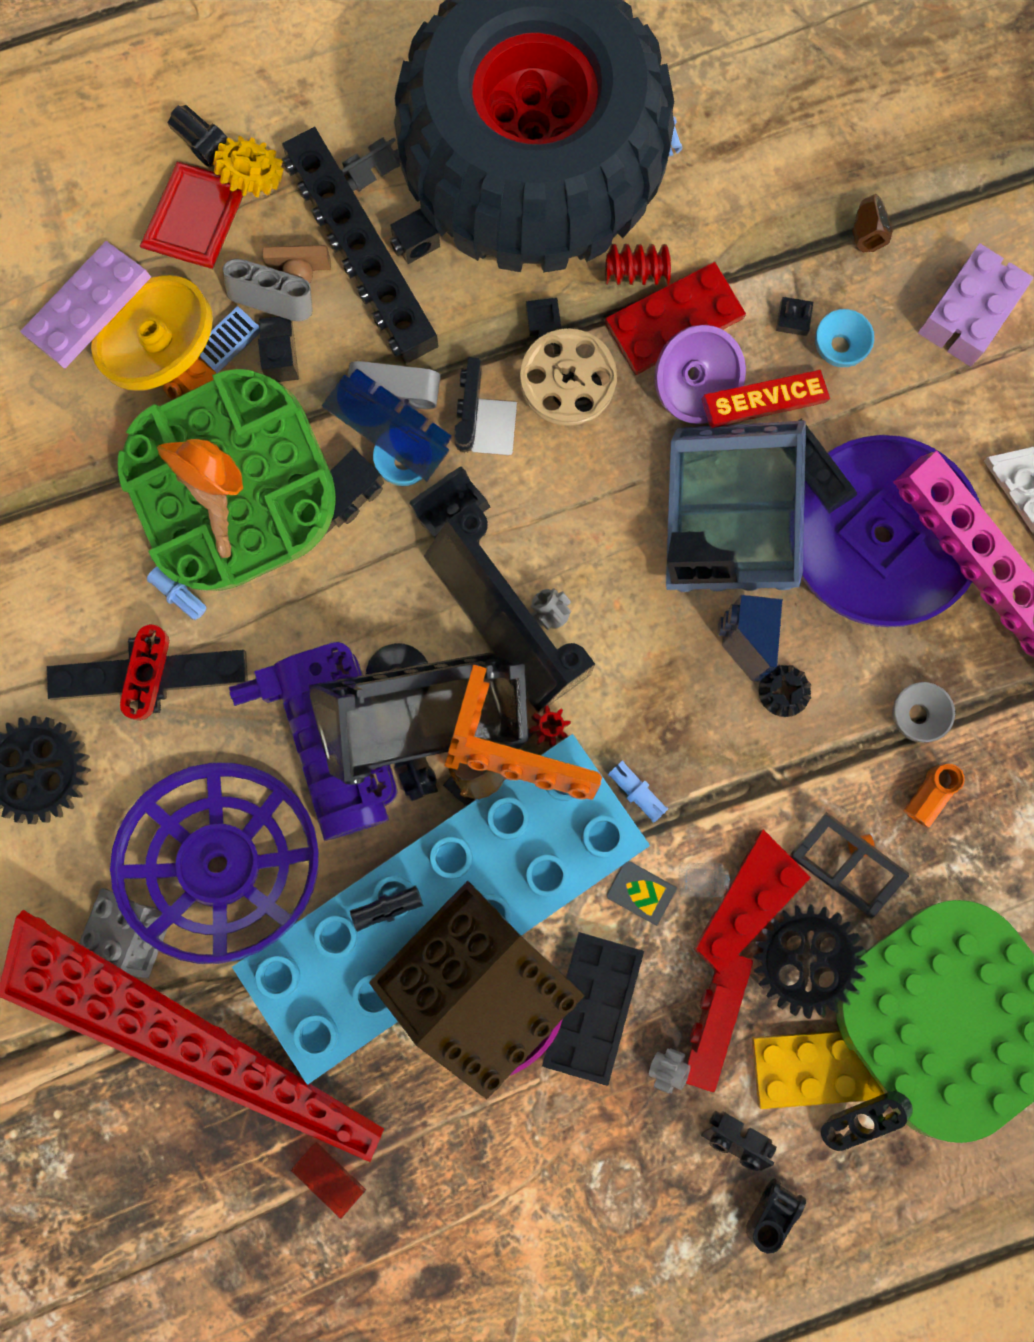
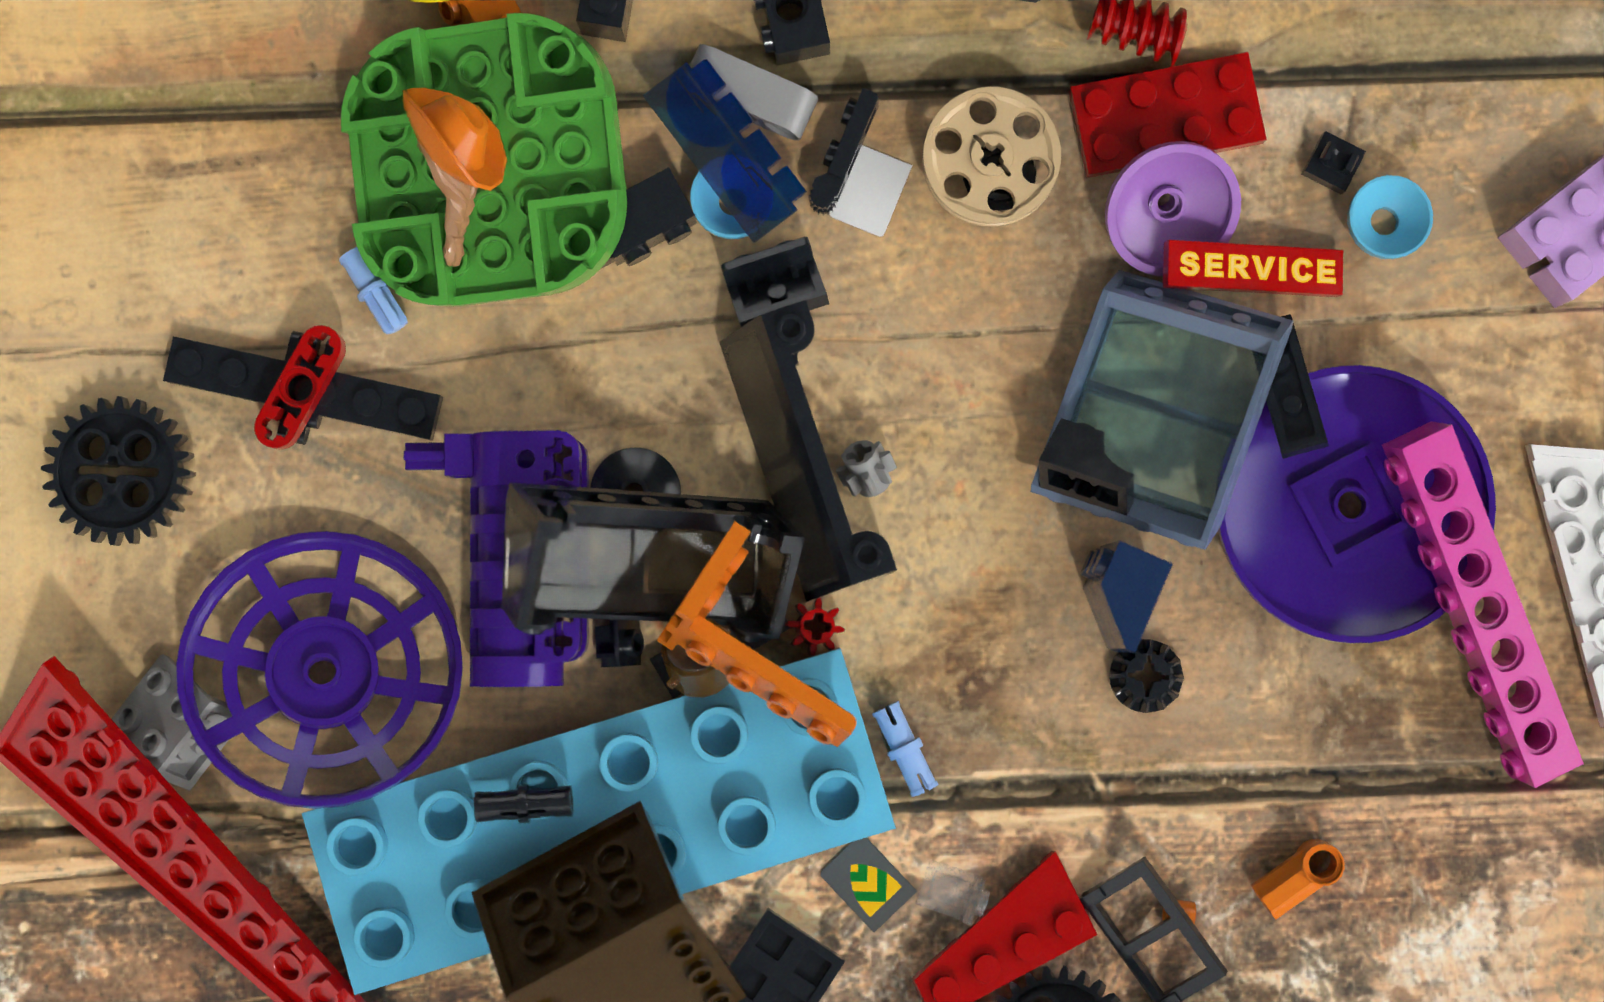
camera: 20 degrees right, 5 degrees up
(543, 318) = (985, 62): black plate -> none
(872, 225) = (1484, 67): reddish brown rock -> none
(938, 707) = (1344, 768): light grey piece -> none

